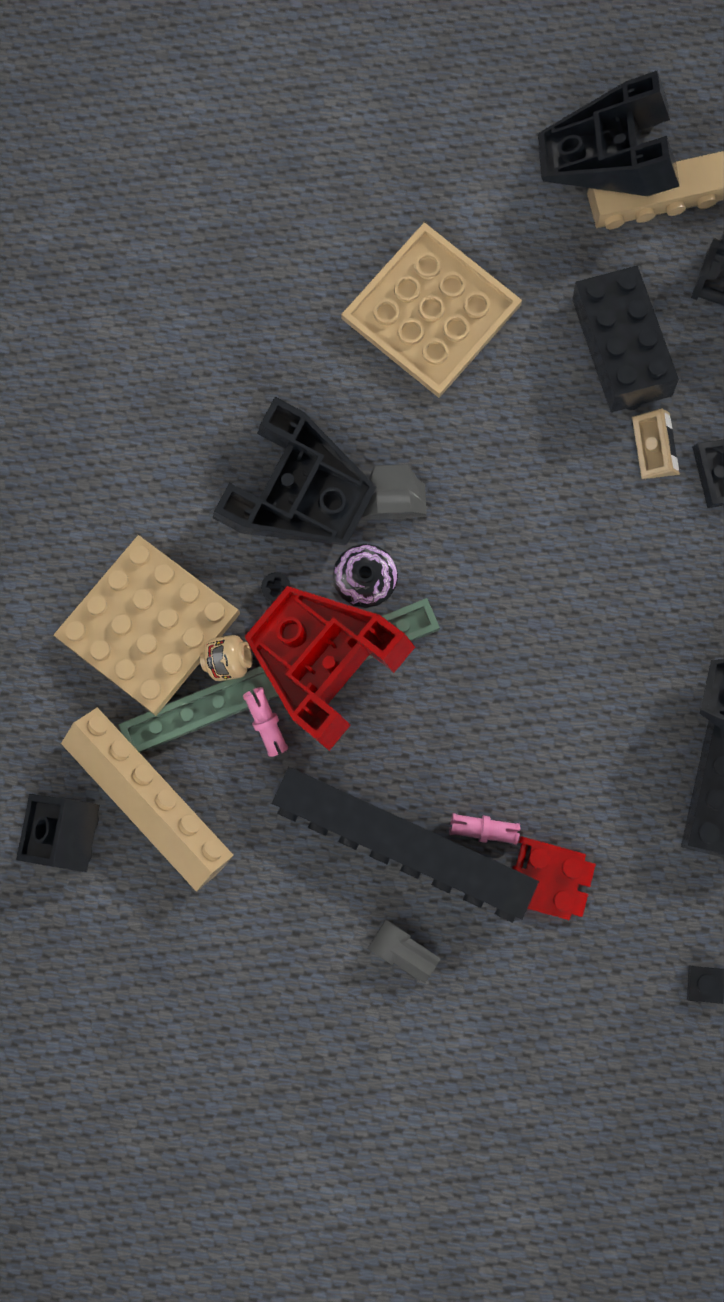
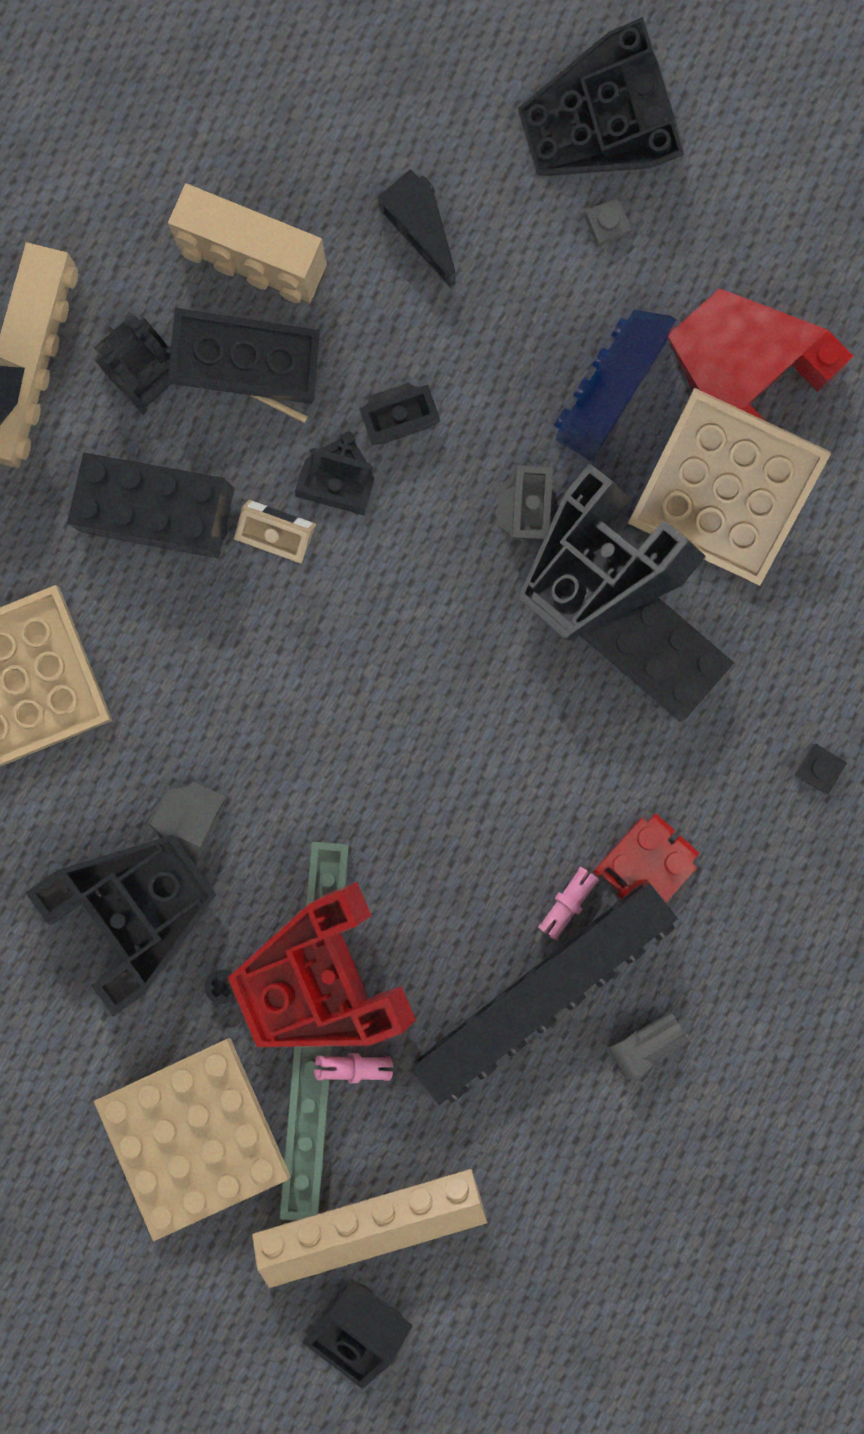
camera: 65 degrees left, 5 degrees up
(226, 658) = (270, 1077): tan head -> none
(367, 591) = (274, 884): dish -> none

